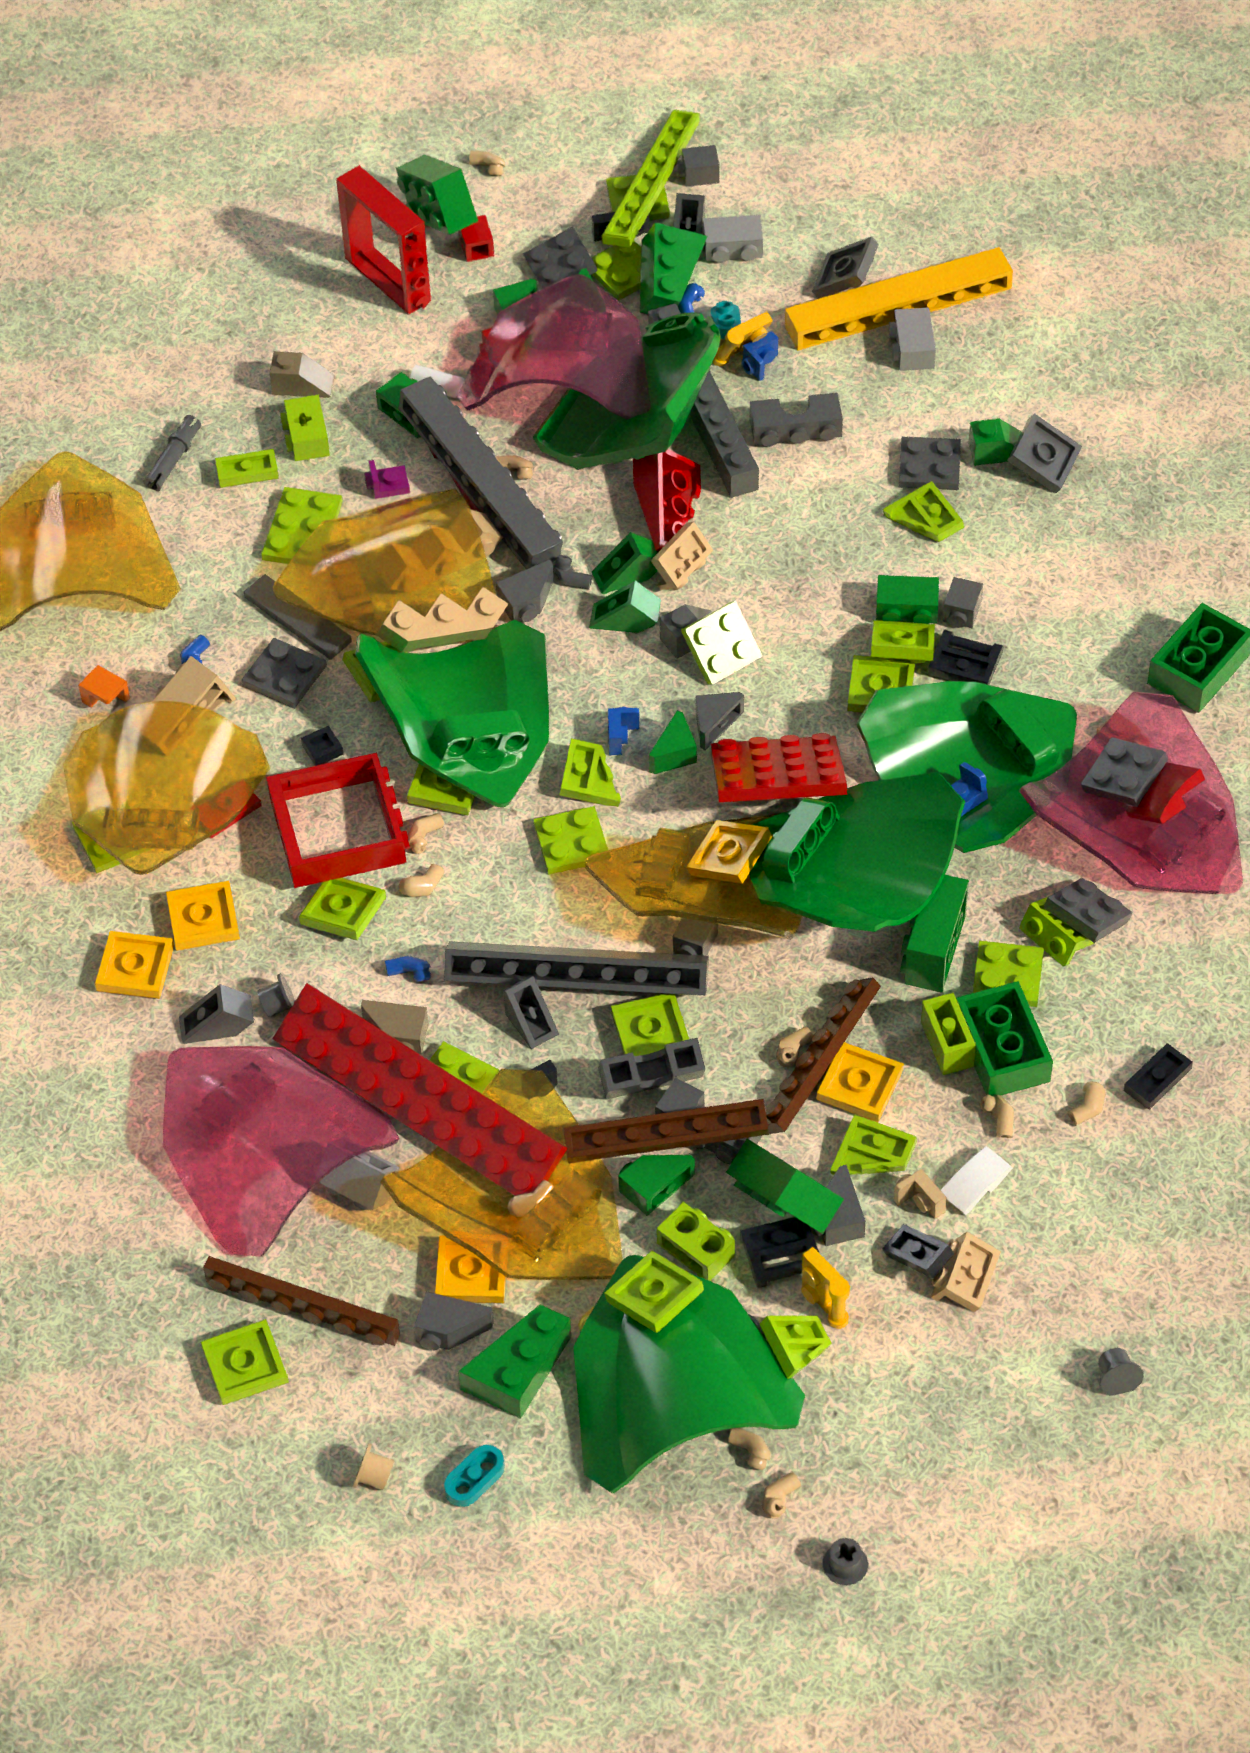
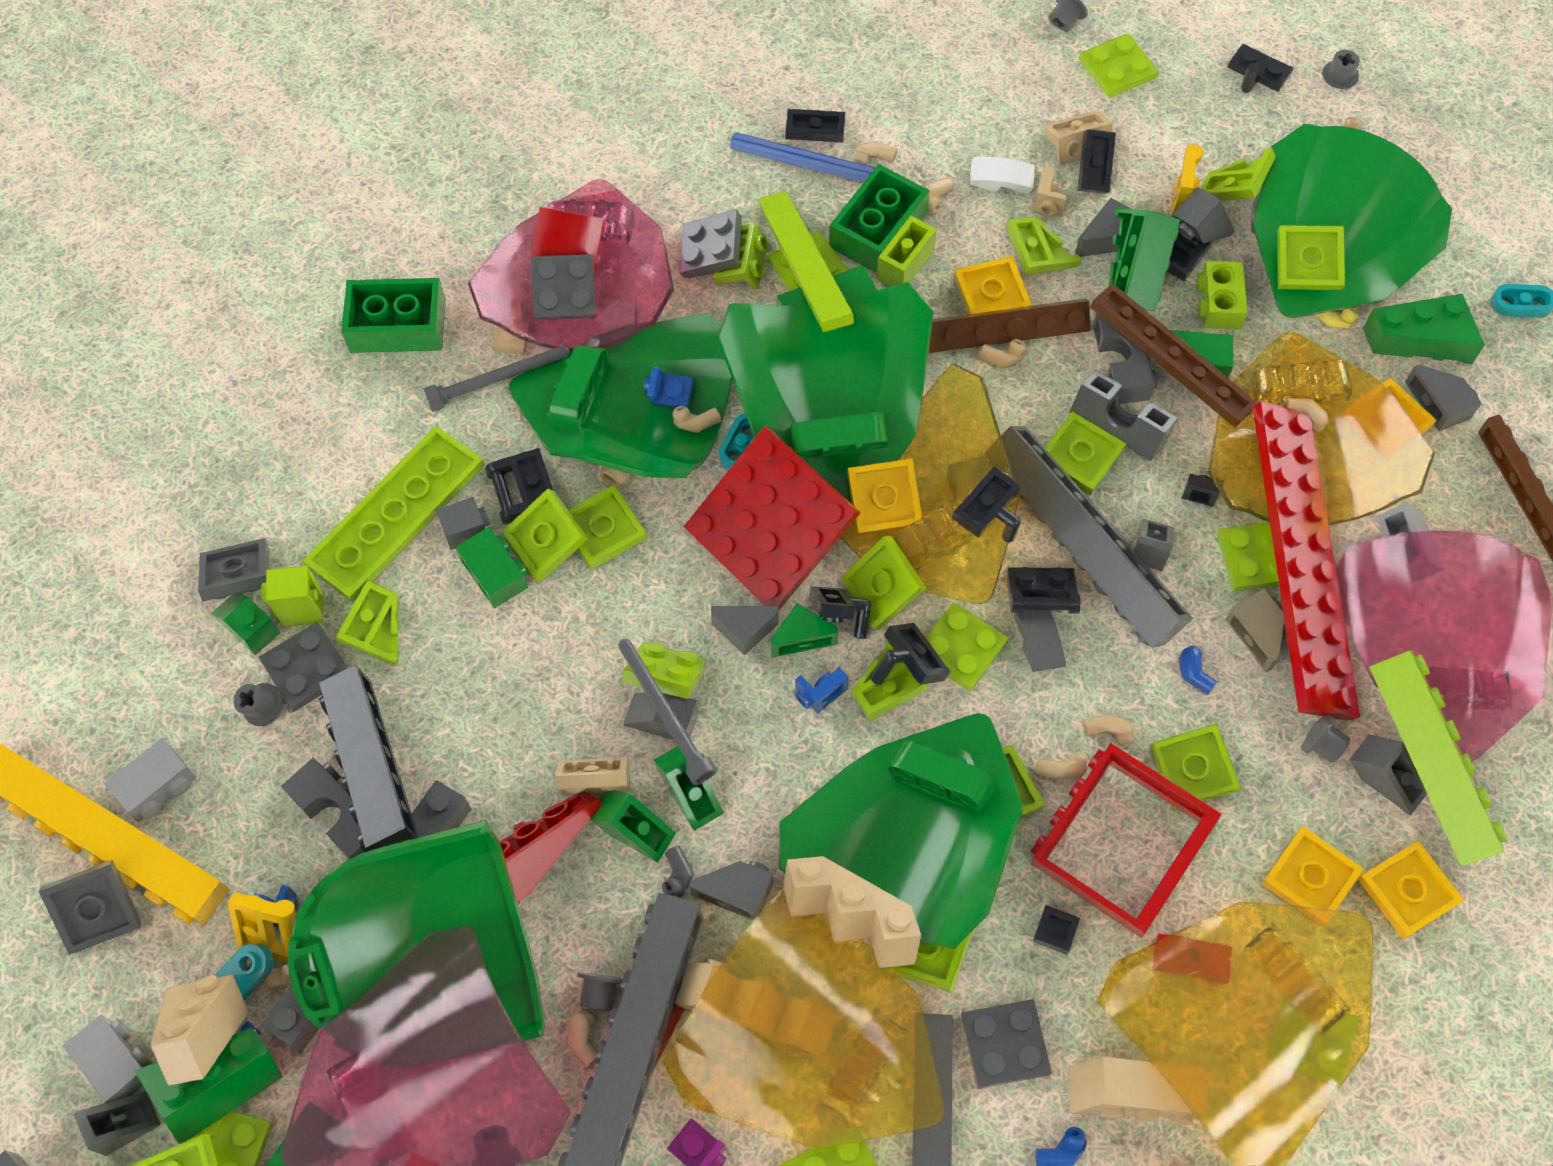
camera: 130 degrees left, 10 degrees up
(195, 1028) = (1438, 759): none -> lime brick
(529, 884) = (1040, 639): none -> dark grey slope
(538, 485) = (598, 991): none -> dark grey piece
(569, 919) = (1042, 589): none -> black plate
(586, 787) = (916, 653): none -> black plate
(621, 596) = (698, 766): none -> dark grey piece
(641, 865) = (989, 502): none -> black plate
(653, 811) = (885, 580): none -> lime plate
(675, 770) = (835, 606): none -> black plate
(701, 265) = (196, 1026): none -> tan wedge
(776, 1275) = (1203, 217): none -> dark grey slope
(807, 439) = (367, 760): none -> brick
(910, 1492) = (1259, 68): none -> black plate
(921, 419) = (258, 703): none -> dark grey piece
(983, 468) = (293, 596): none -> lime brick
(994, 929) = (806, 262): none -> lime tile
(1013, 573) = (393, 513): none -> lime plate
(1020, 1375) = (1118, 65): none -> lime plate
(1099, 652) = (439, 396): none -> dark grey piece
(1119, 1053) = (800, 157): none -> axle

